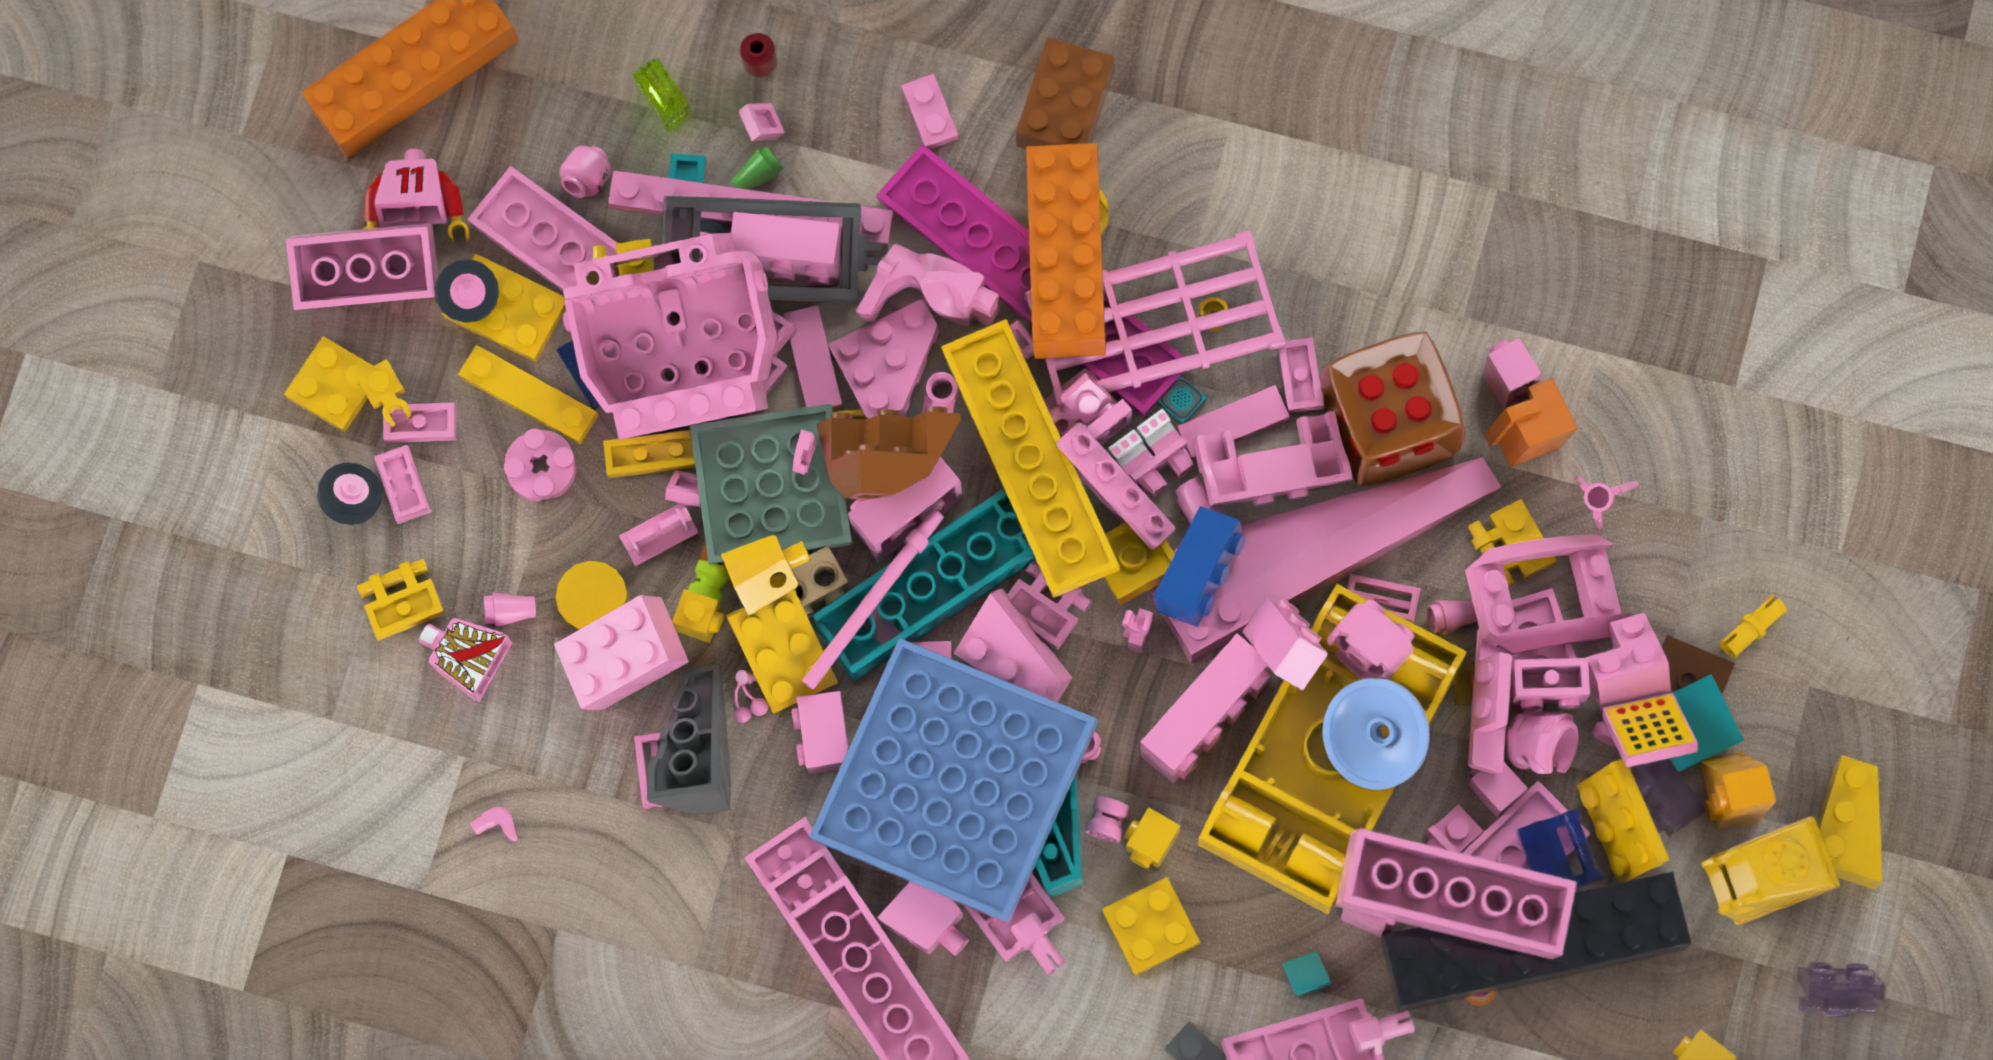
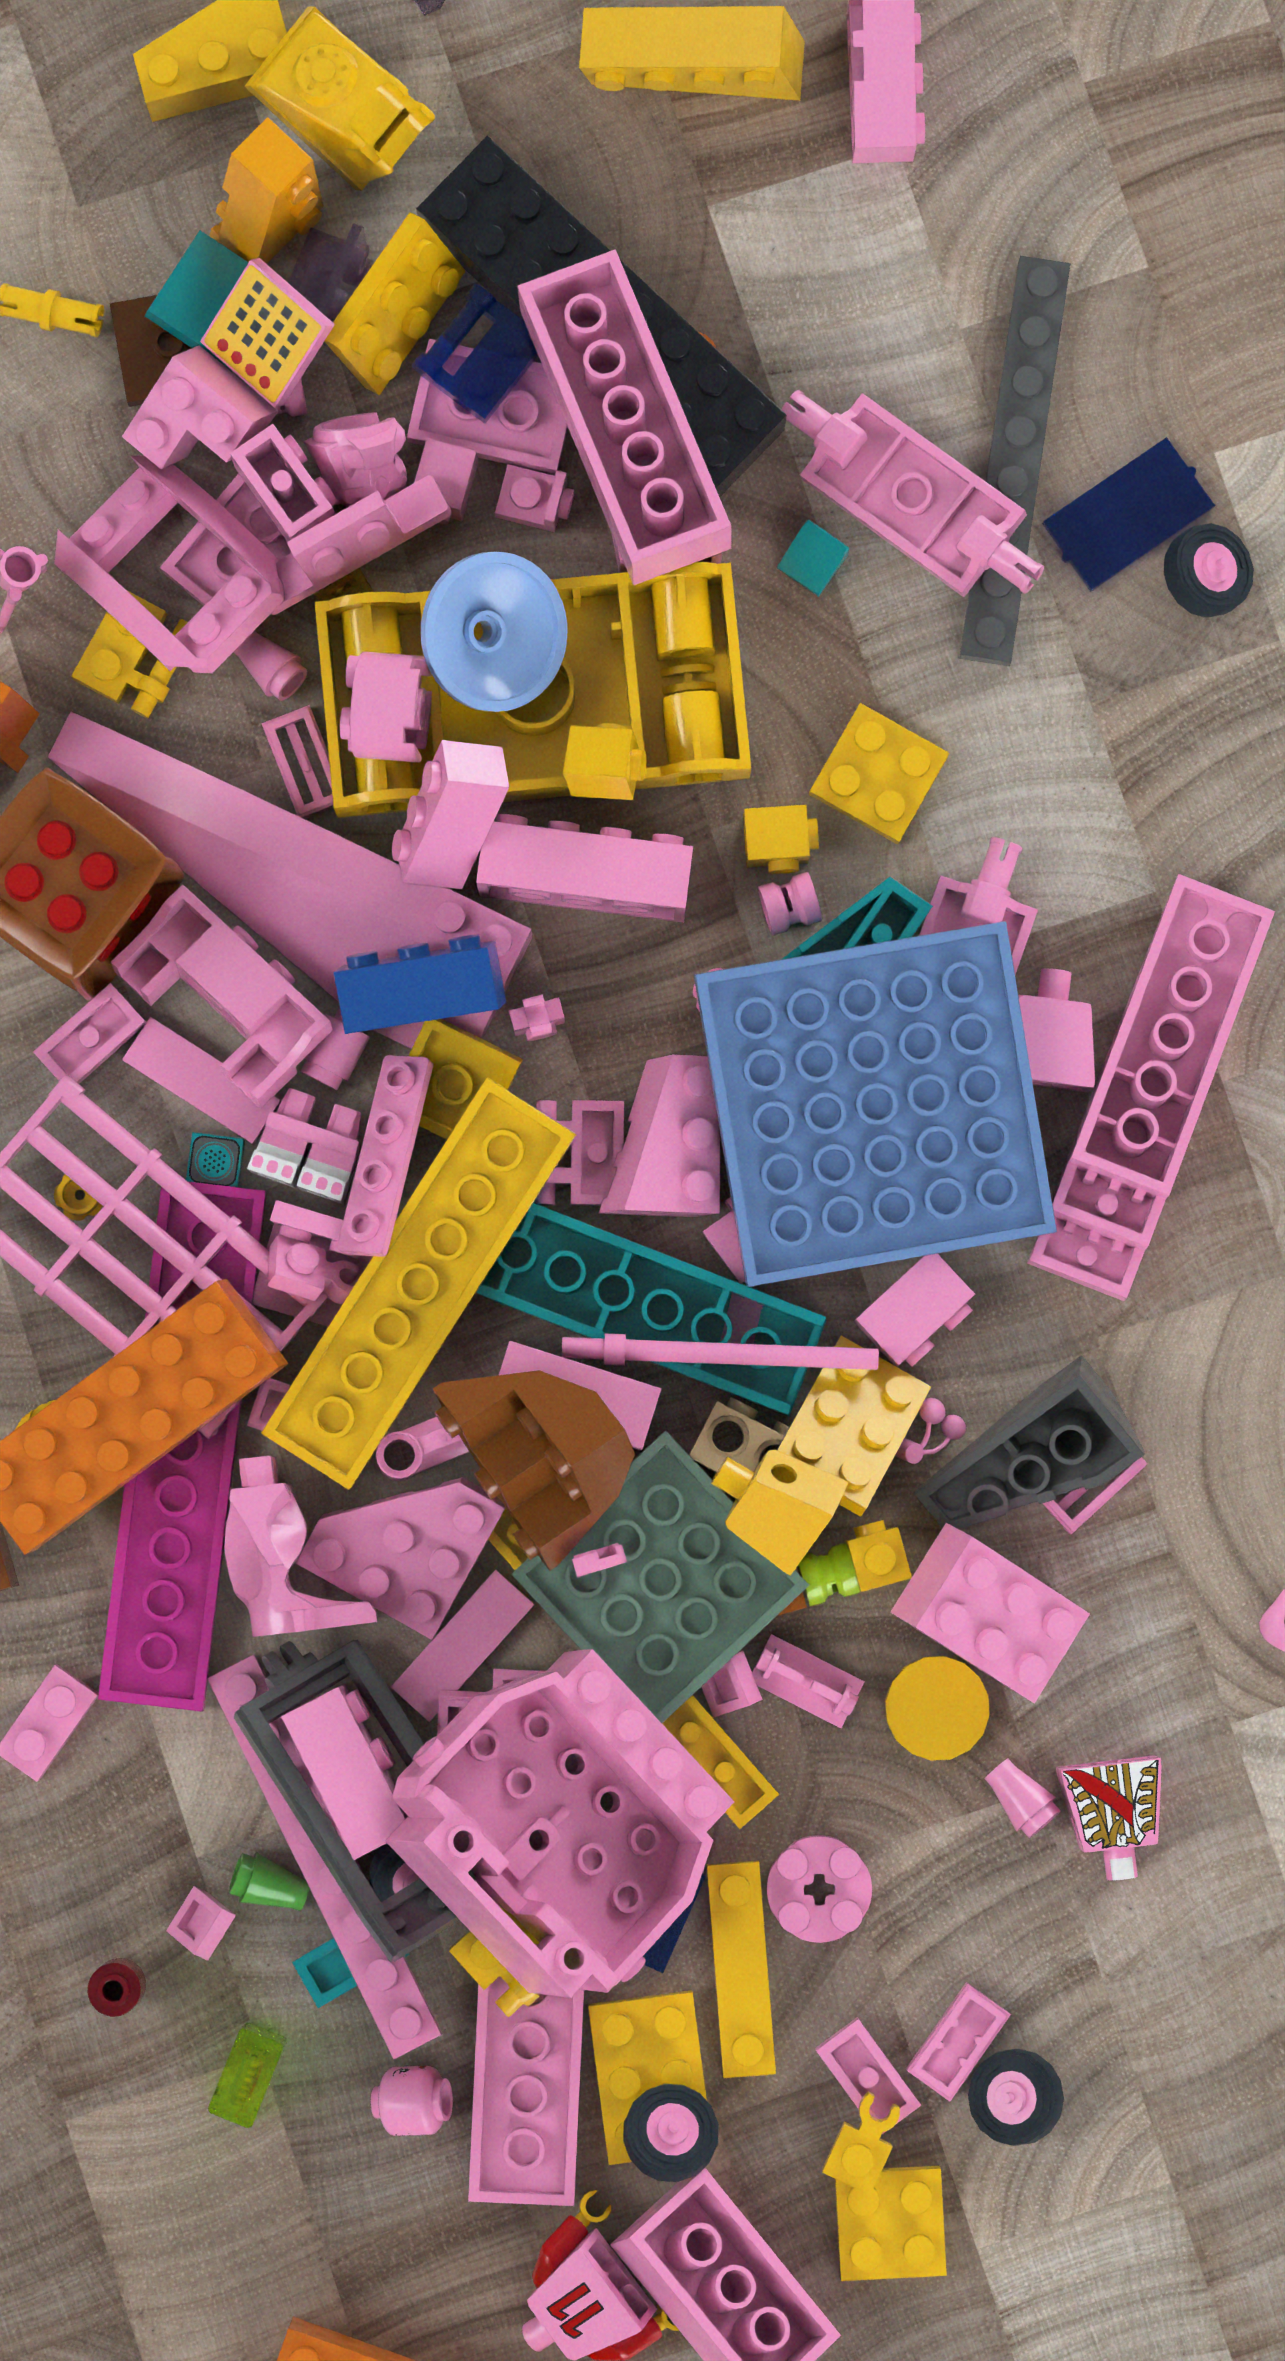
camera: 135 degrees left, 10 degrees up
(404, 608) = (1107, 1925): yellow plate -> none
(1257, 748) = (603, 762): none -> yellow brick

